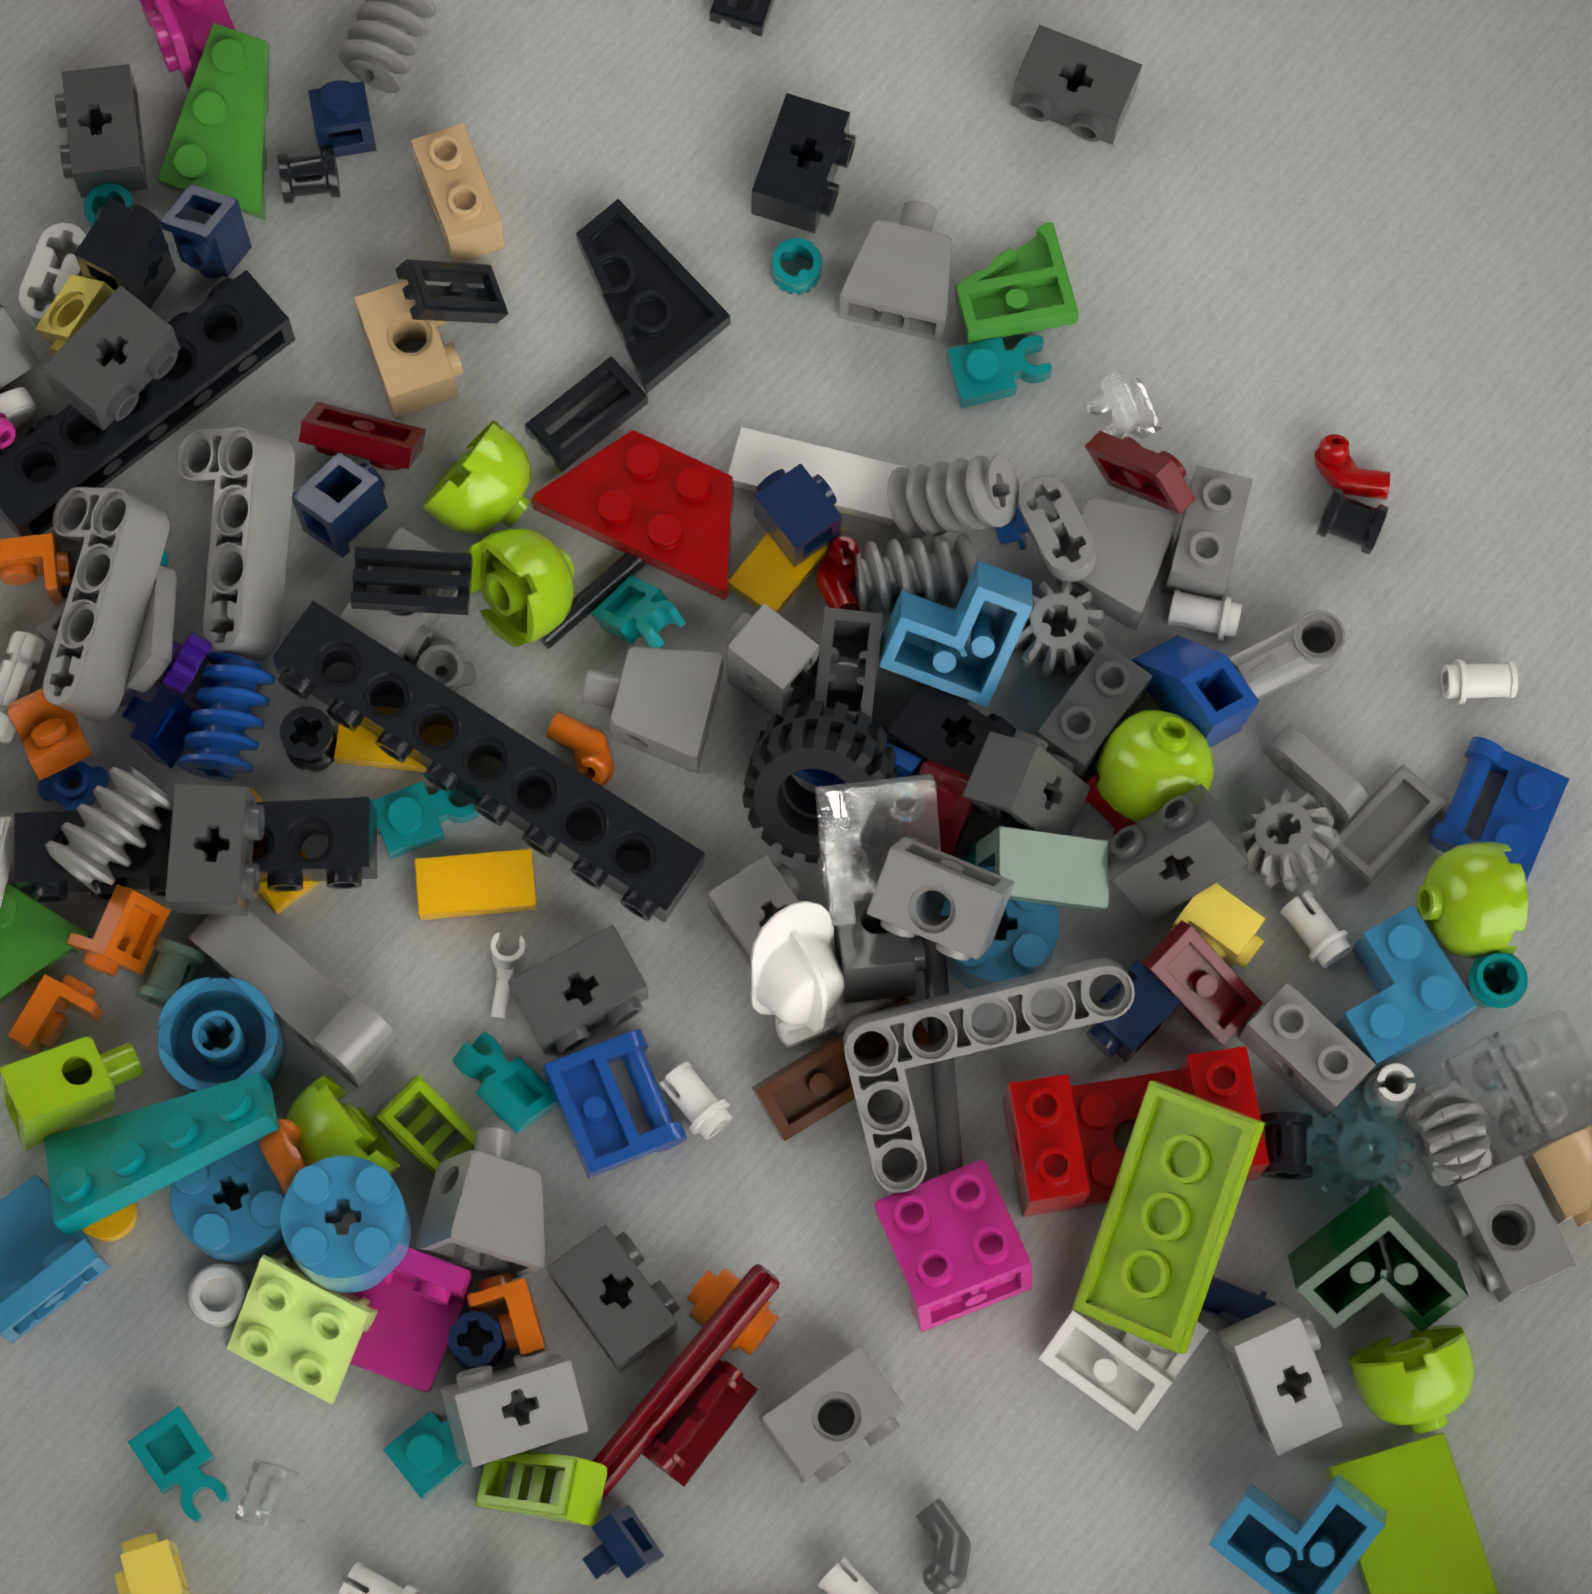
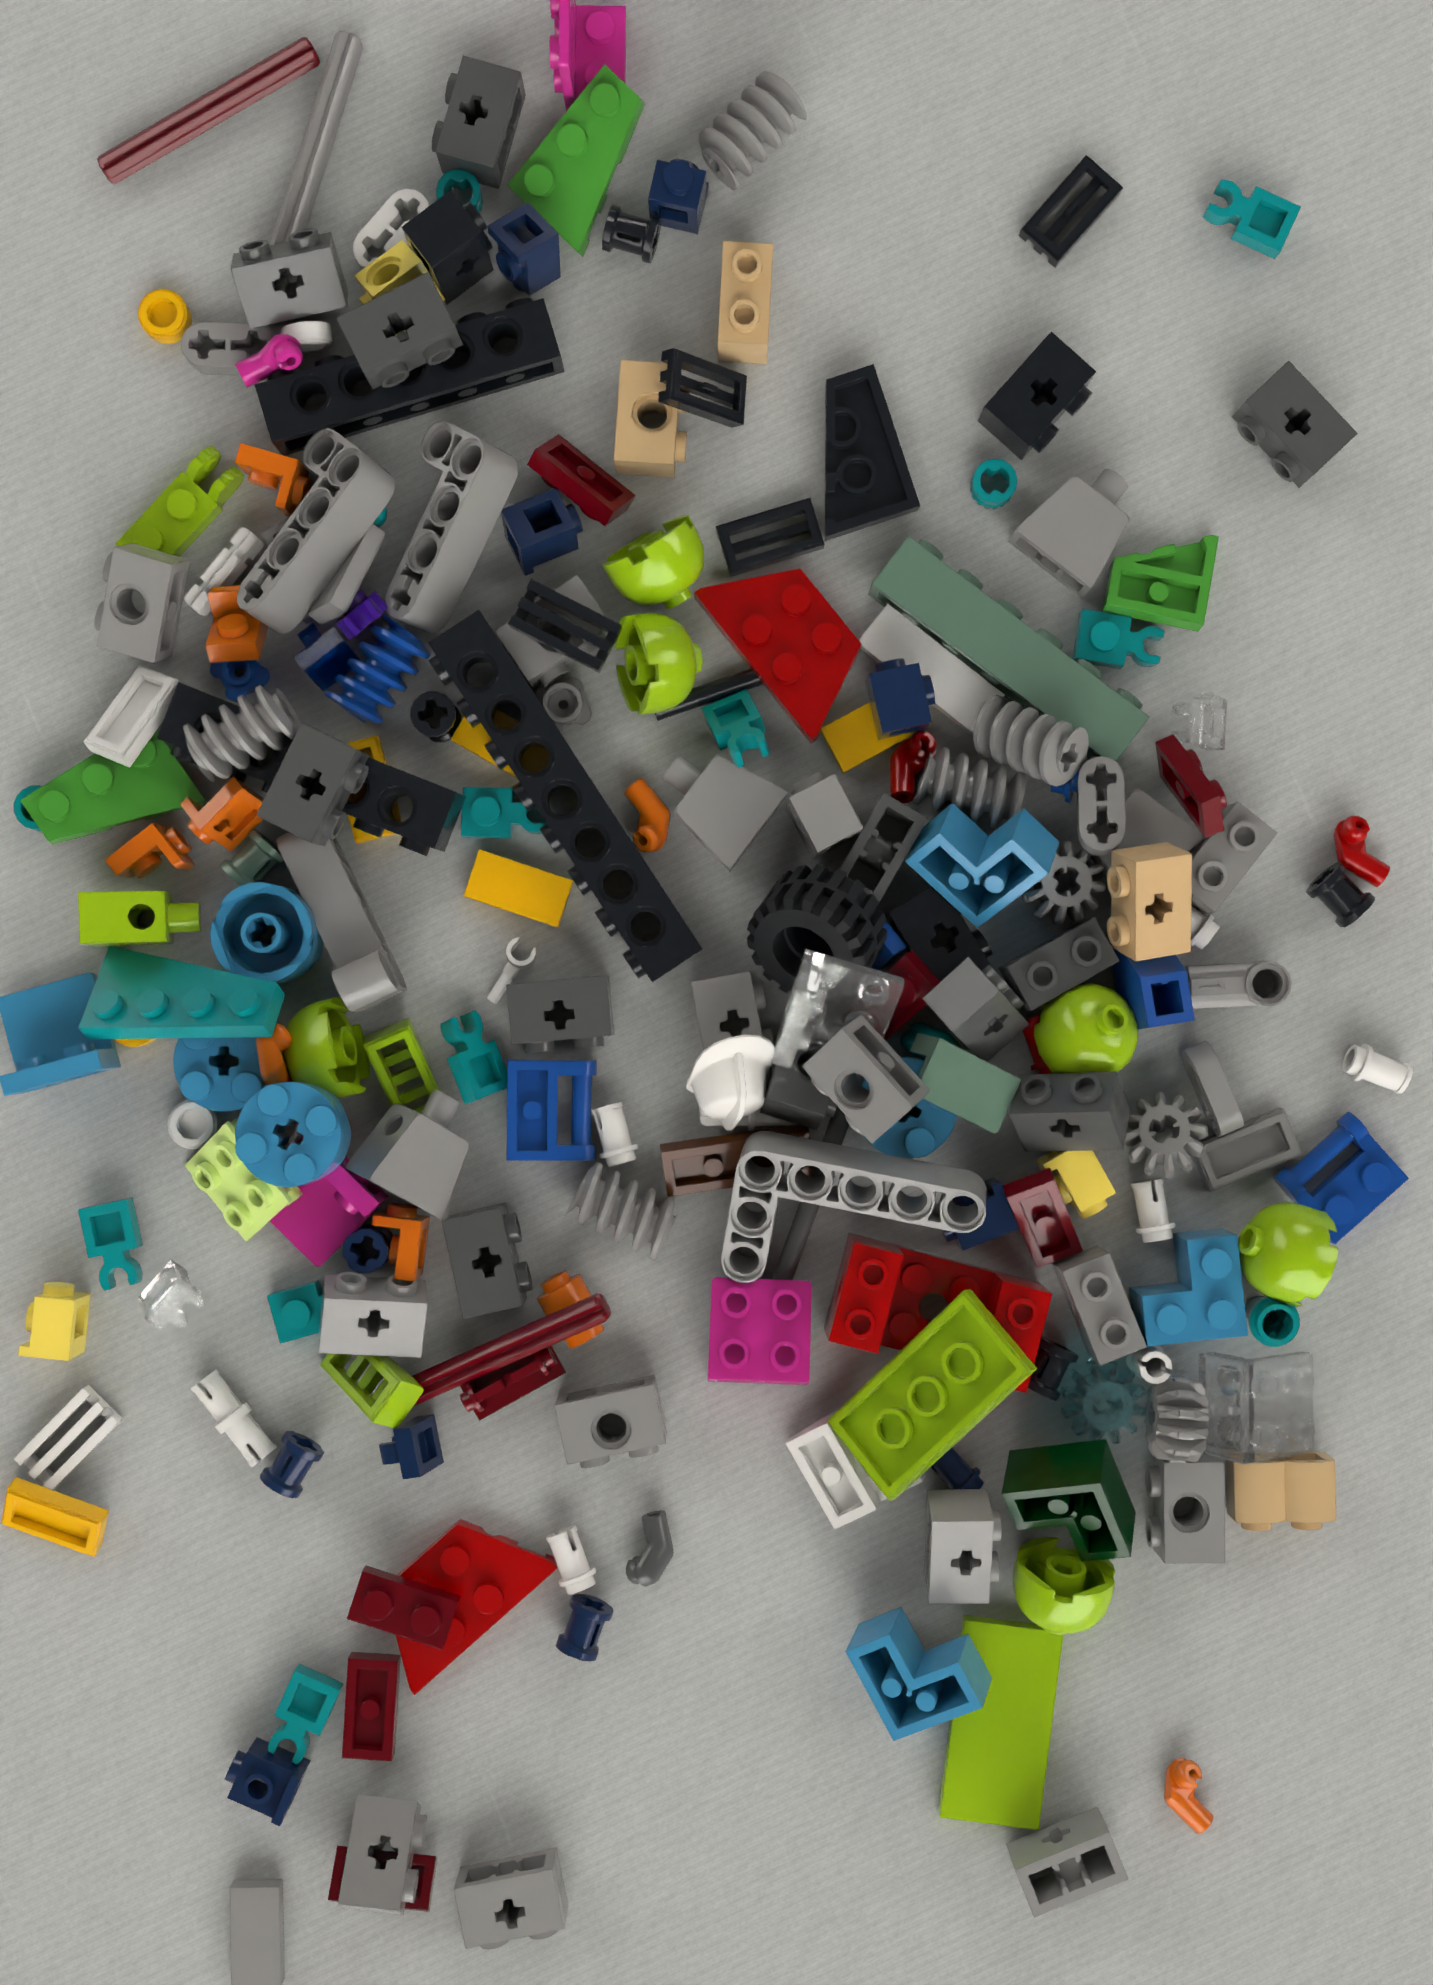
camera: 25 degrees right, 15 degrees up
(742, 1174) = (623, 1210): none -> light grey piece
(879, 417) = (1006, 650): none -> sand green brick
(1157, 571) = (1150, 901): none -> tan brick

